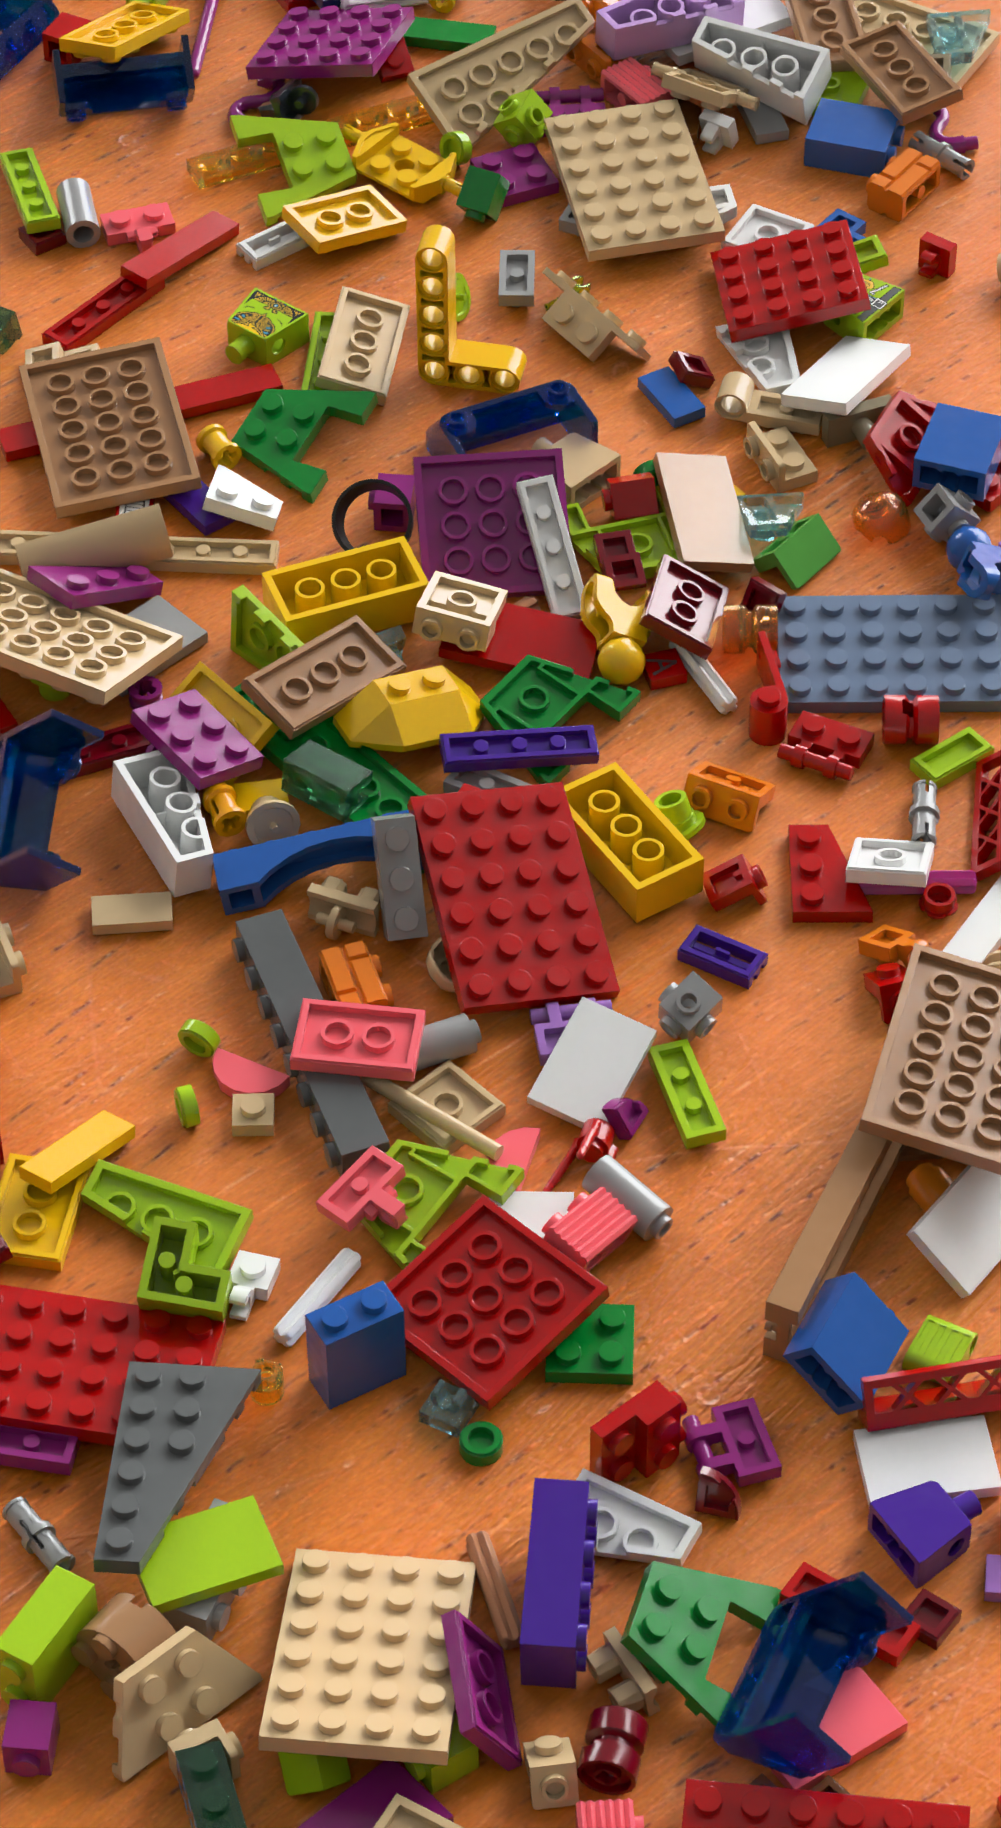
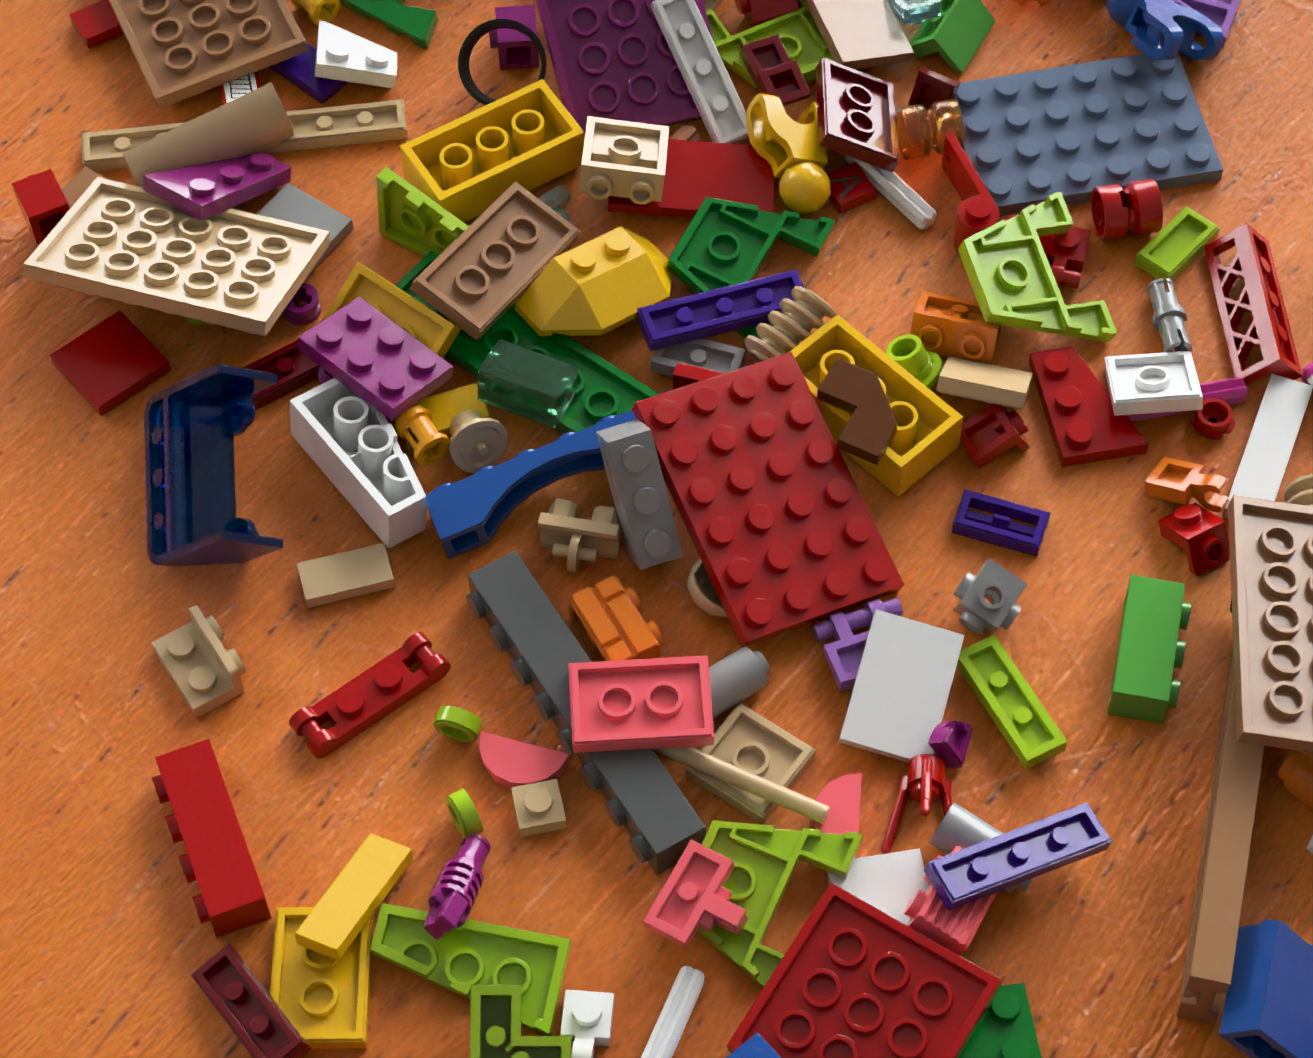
camera: 10 degrees left, 10 degrees up
(130, 1008) = (370, 696): none -> red plate
(166, 1154) = (457, 887): none -> magenta hinge
(581, 762) = (790, 327): none -> tan piece
(620, 846) = (861, 394): none -> reddish brown tile
(651, 1201) = (1017, 856): none -> tile
(736, 839) = (984, 382): none -> tan tile
(788, 760) = (1017, 282): none -> lime wing
(821, 1070) = (1149, 649): none -> bright green brick

